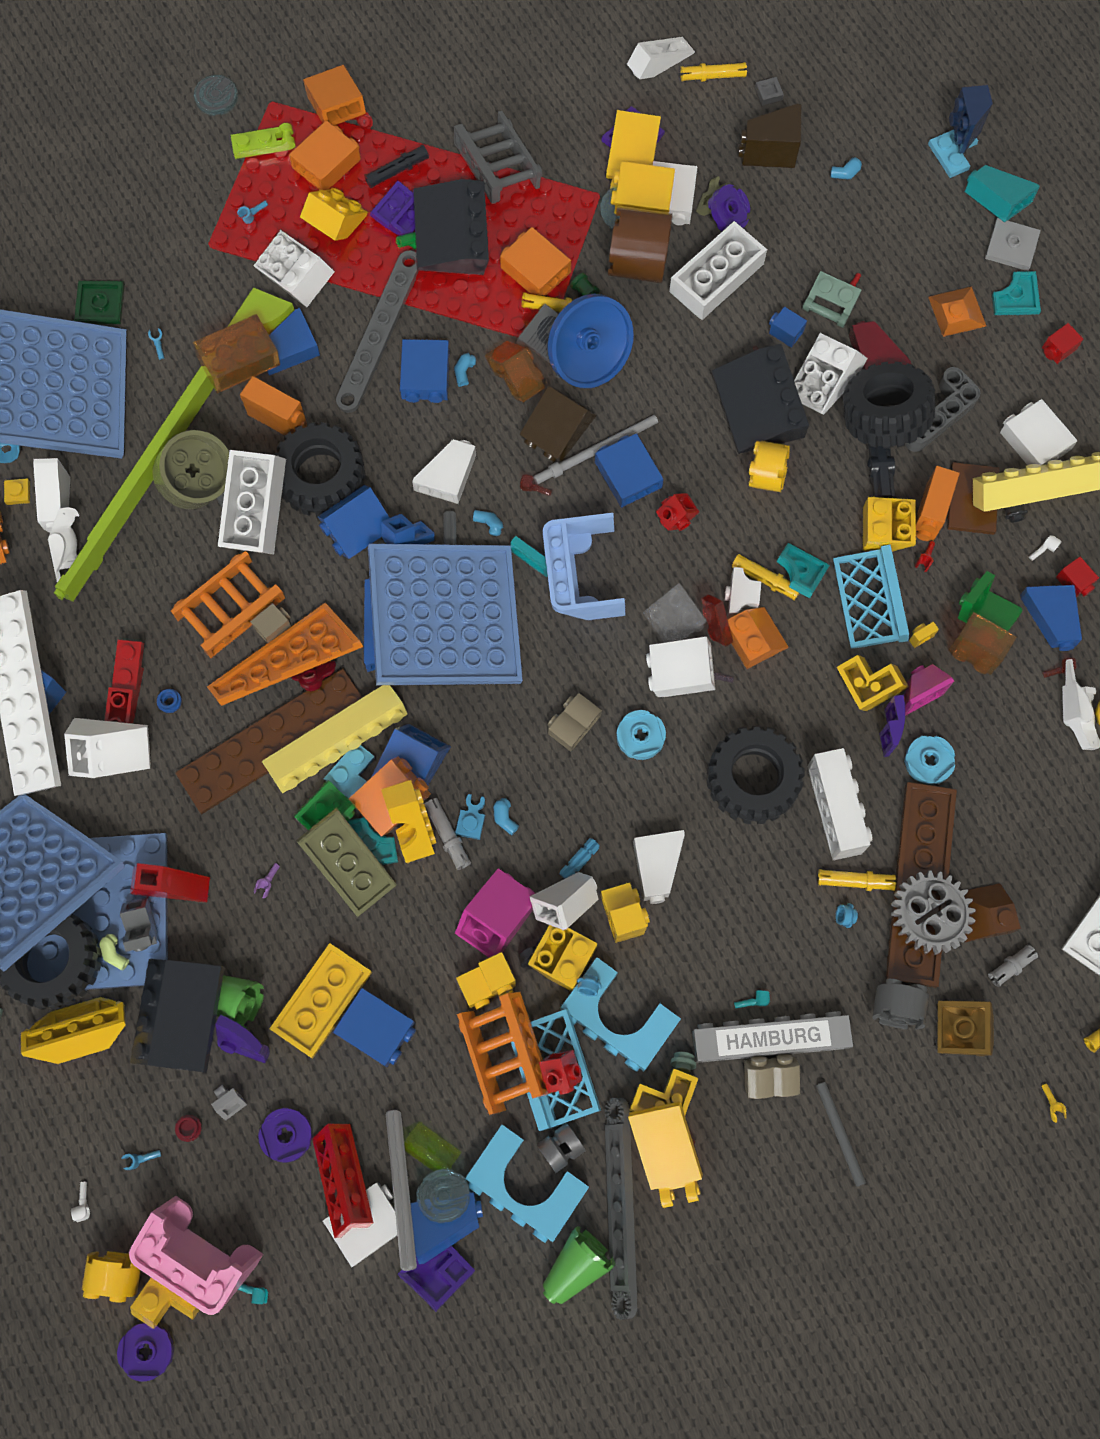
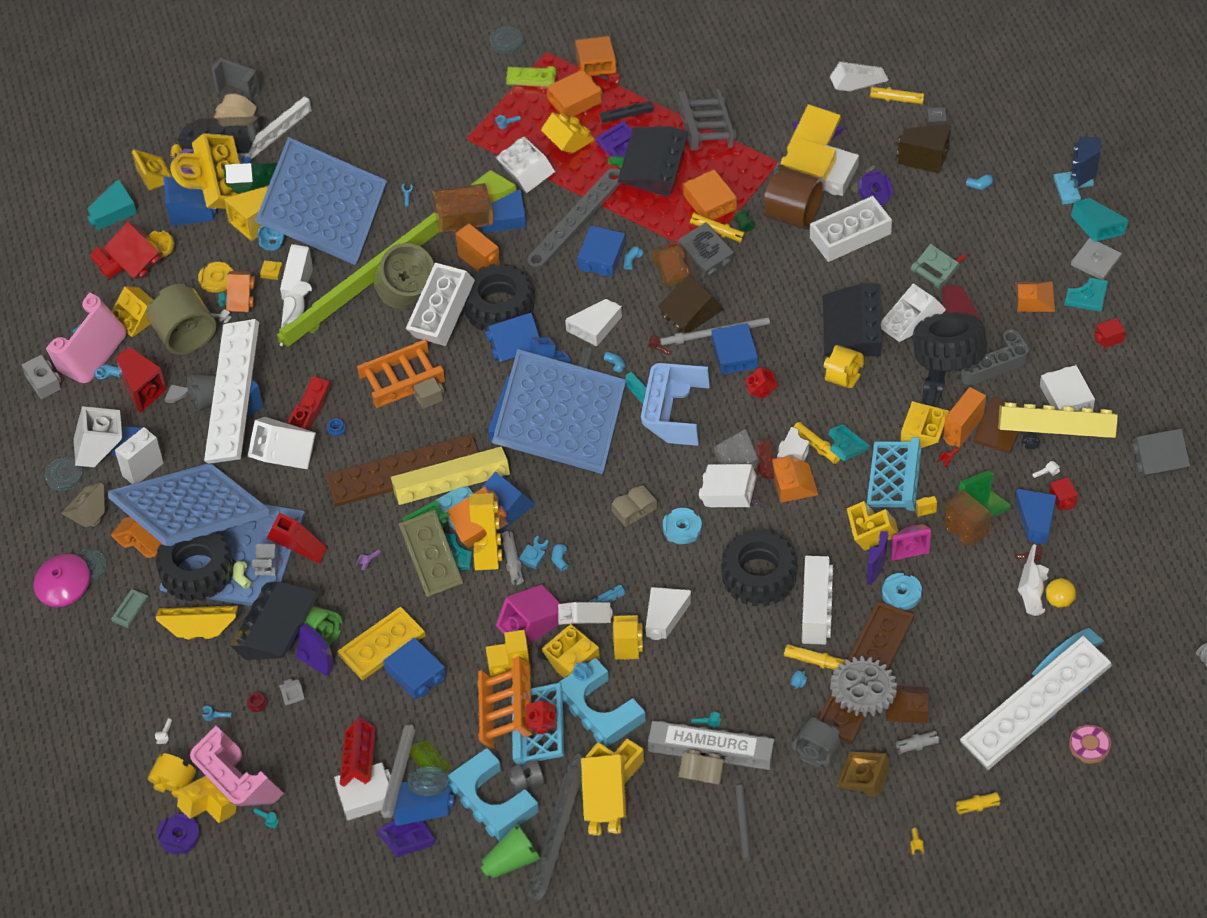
camera: 20 degrees right, 20 degrees down
(99, 302) = (374, 158): dark green tile -> none
(272, 1128) = (325, 733): dark purple plate -> none
(303, 646) = (445, 411): orange wing -> none
(312, 678) = (448, 430): dark red plate -> none
(590, 341) = (731, 252): blue dish -> none
(683, 1062) = (641, 742): sand green plate -> none
(787, 326) = (893, 278): blue brick -> none

